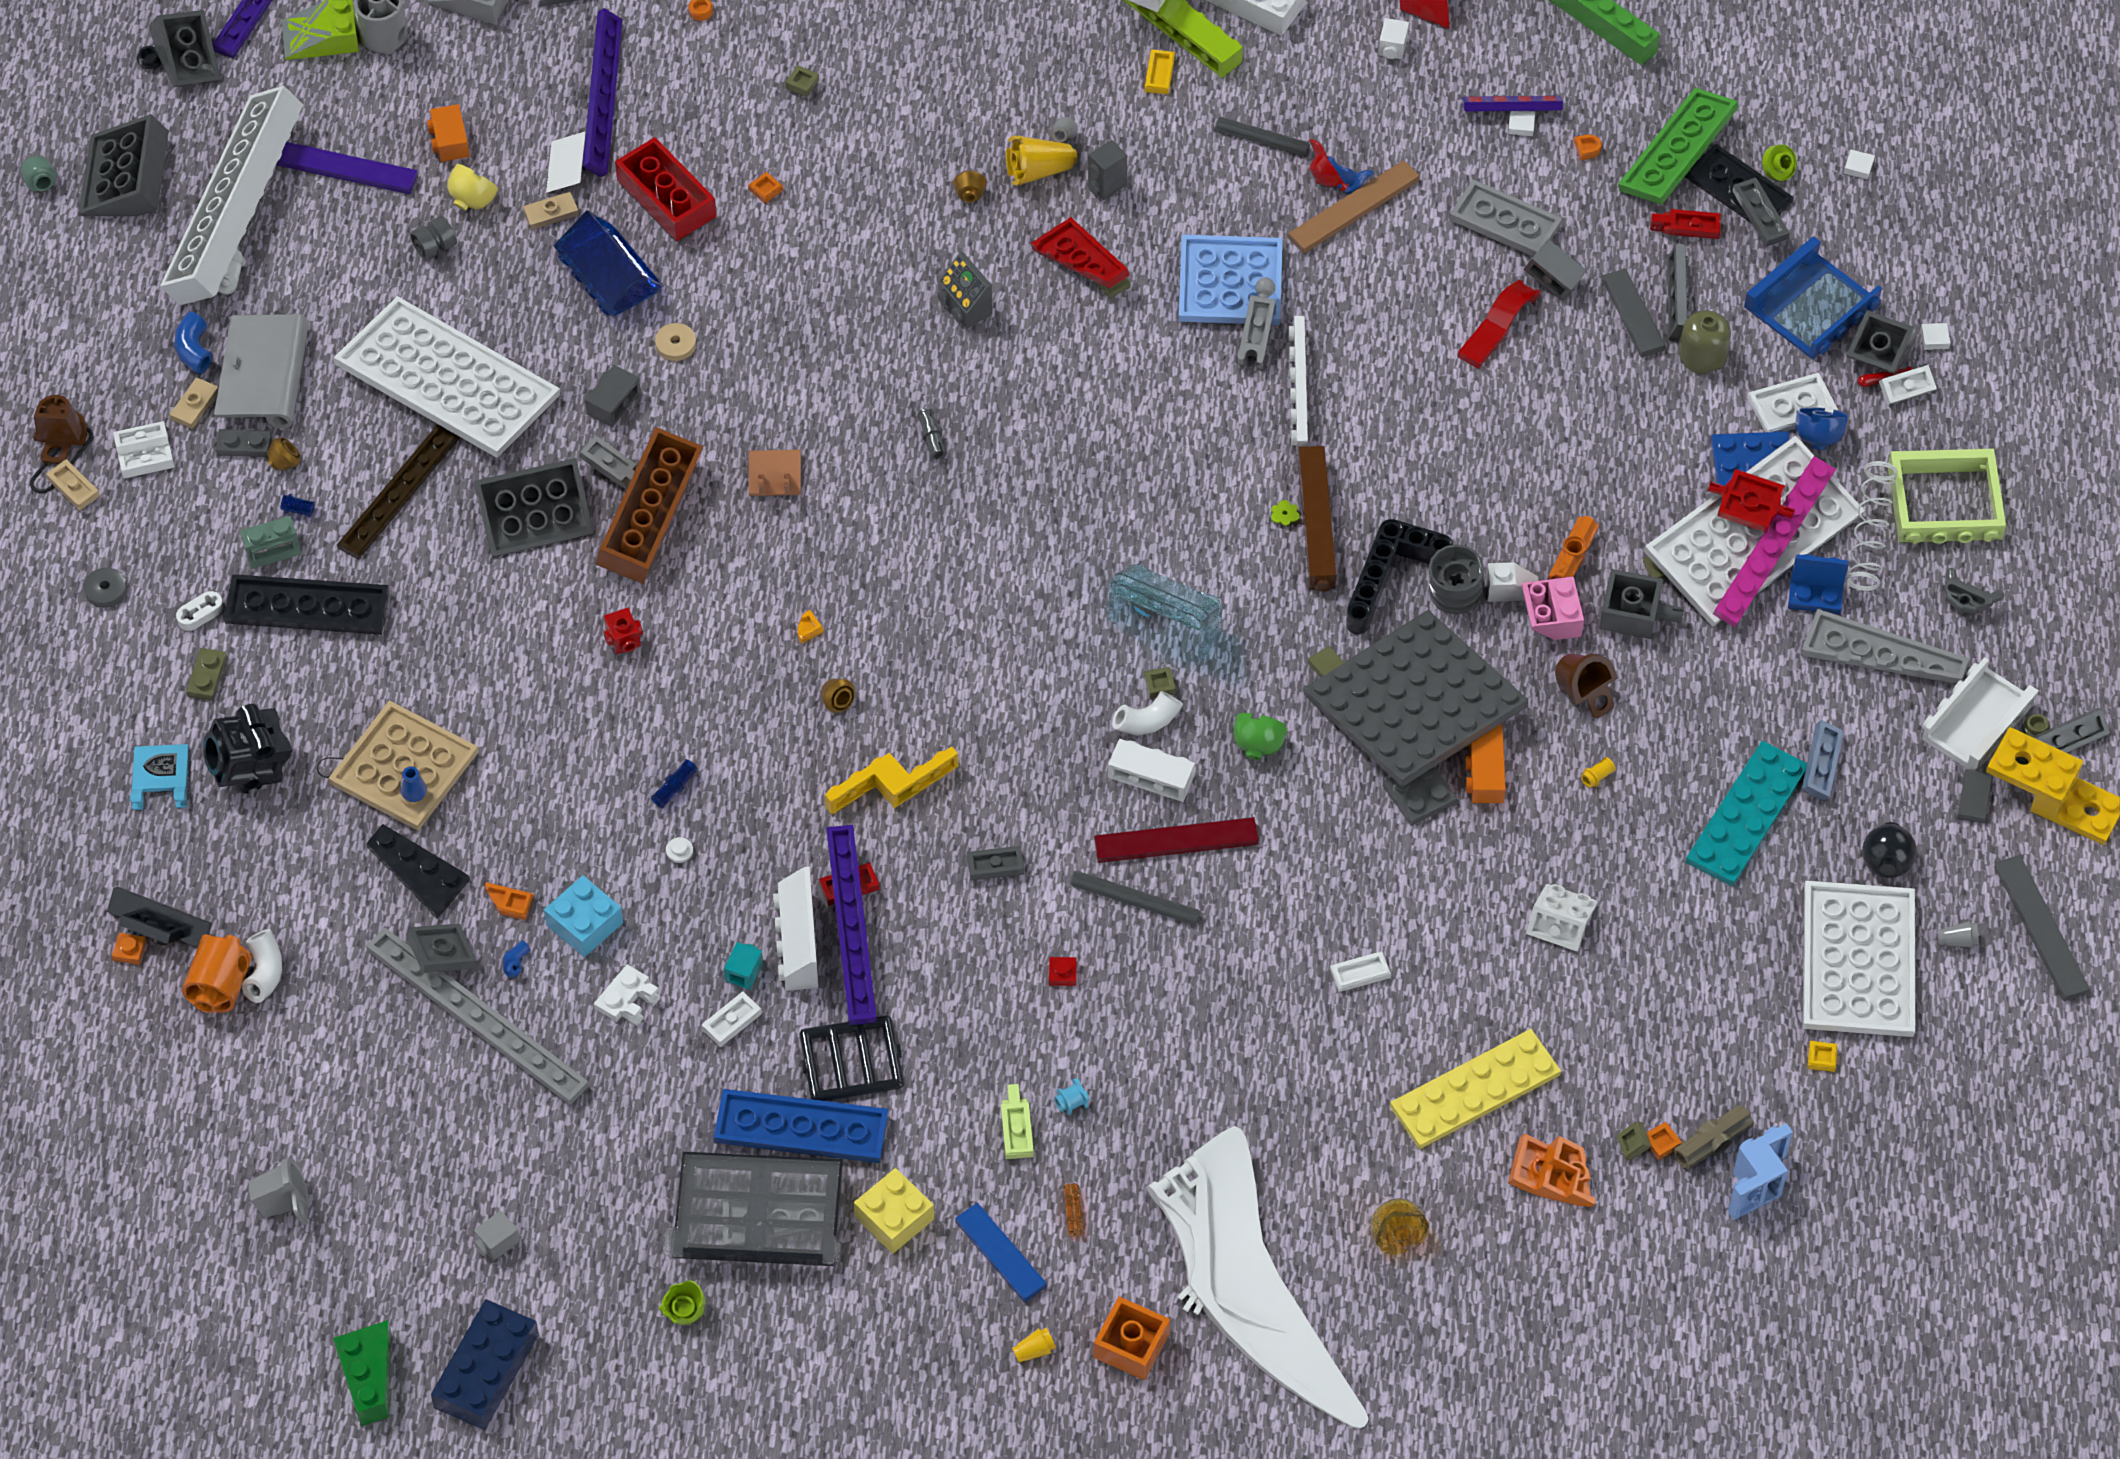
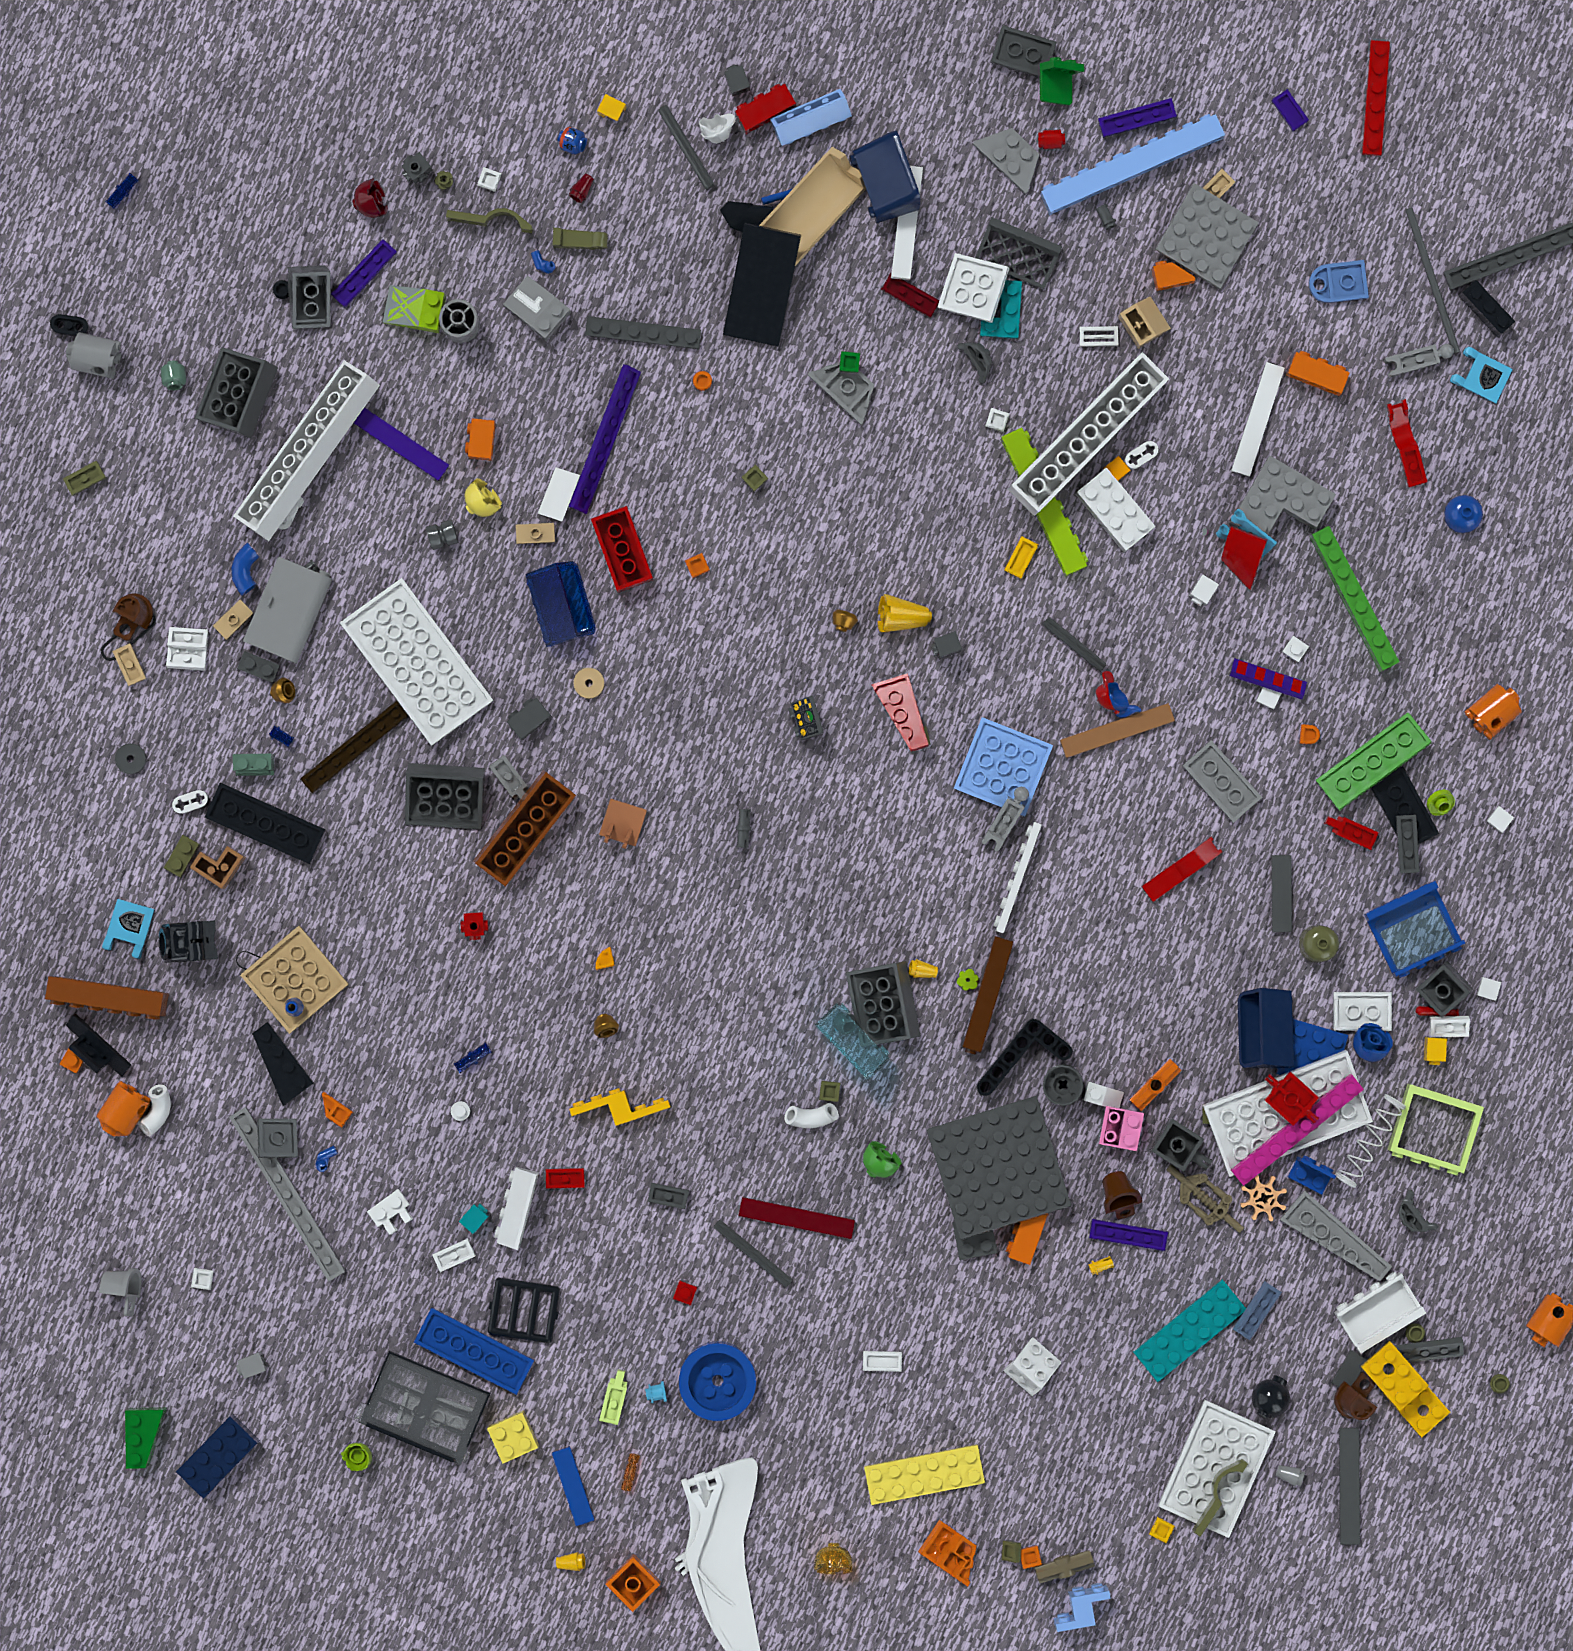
camera: 15 degrees right, 30 degrees up
(154, 848) = (107, 996): none -> dark orange brick
(259, 668) = (219, 871): none -> medium nougat brick
(391, 1156) = (202, 1278): none -> white tile
(583, 916) = (379, 1144): medium azure brick -> none
(851, 925) = (554, 1216): dark purple plate -> none
(1066, 125) = (929, 593): light grey cone -> none
(1151, 769) = (799, 1159): white brick -> none
(1152, 1031) = (715, 1401): none -> blue brick
(1190, 554) = (884, 1002): none -> dark grey slope
(1221, 516) = (921, 969): none -> yellow cone
(1324, 661) = (950, 1112): olive tile -> none
(1530, 68) = (1295, 649): none -> white plate
(1555, 269) = (1238, 844): dark grey brick -> none
(1617, 730) = (1128, 1234): none -> dark purple tile
(1677, 286) = (1322, 883): dark grey plate -> none
(1681, 445) = (1265, 1028): none -> dark blue windscreen
(1720, 668) = (1189, 1184): none -> dark tan bar
(1768, 633) = (1260, 1188): none -> light nougat gear
(1796, 52) = (1494, 710): none -> orange cylinder
(1872, 979) = (1215, 1503): none -> olive piece
(1902, 413) = (1435, 1050): none -> yellow brick
(1998, 819) = (1353, 1401): none -> reddish brown container

